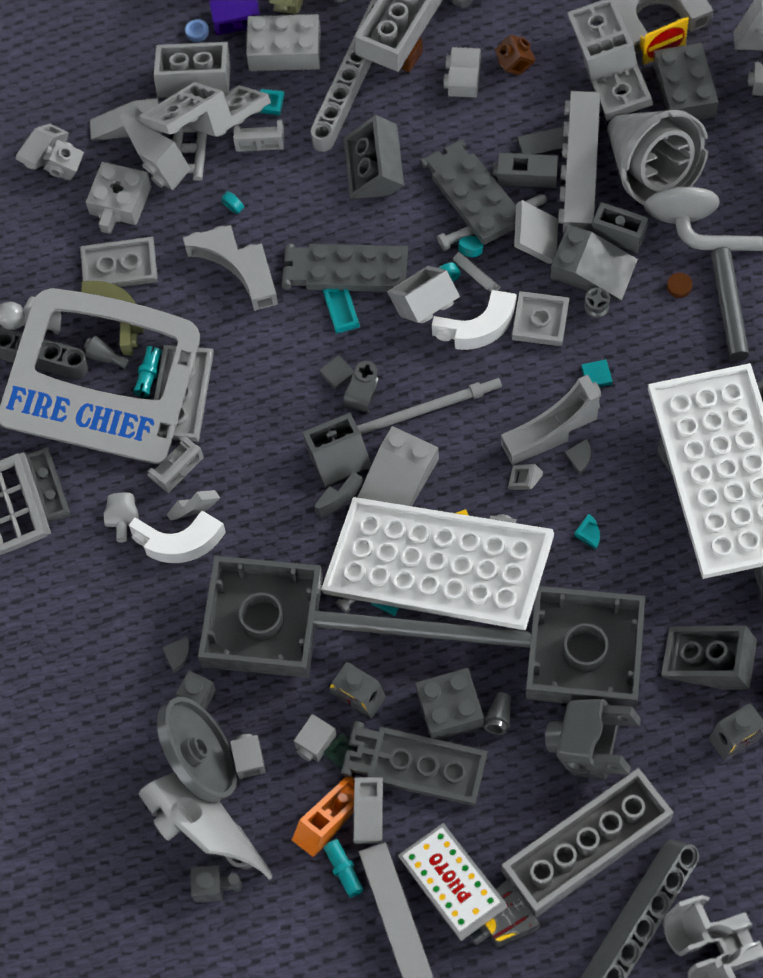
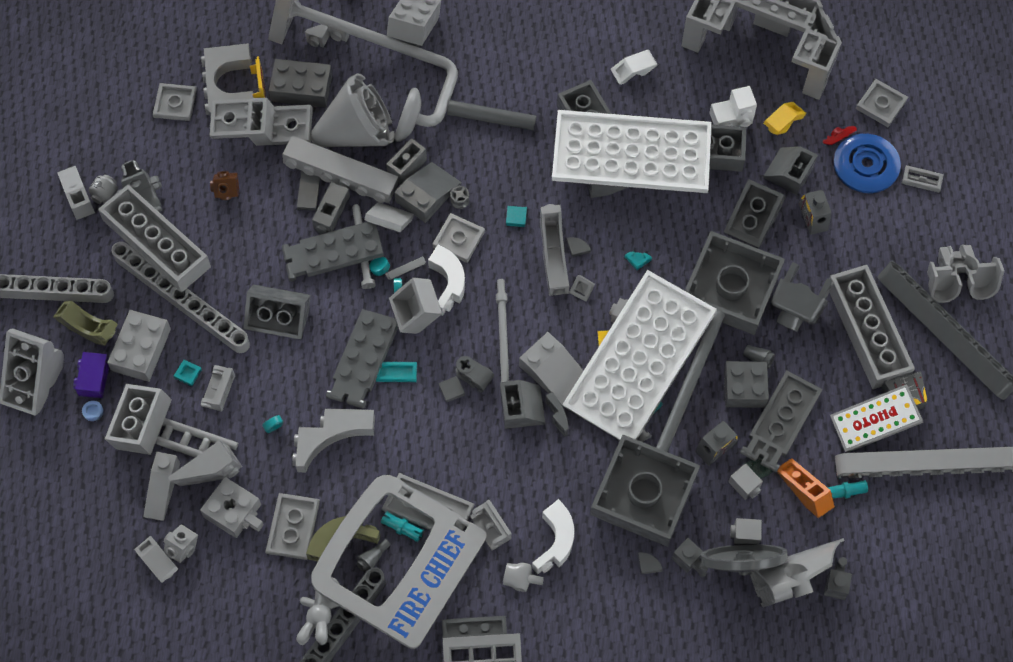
camera: 80 degrees left, 0 degrees up
(199, 502) = (532, 525): light grey slope -> none
(204, 109) = (188, 416): light grey bracket -> none
(368, 810) = (808, 456): light grey slope -> none
(463, 72) = (224, 225): light grey brick -> none
(679, 285) = (463, 142): reddish brown tile -> none

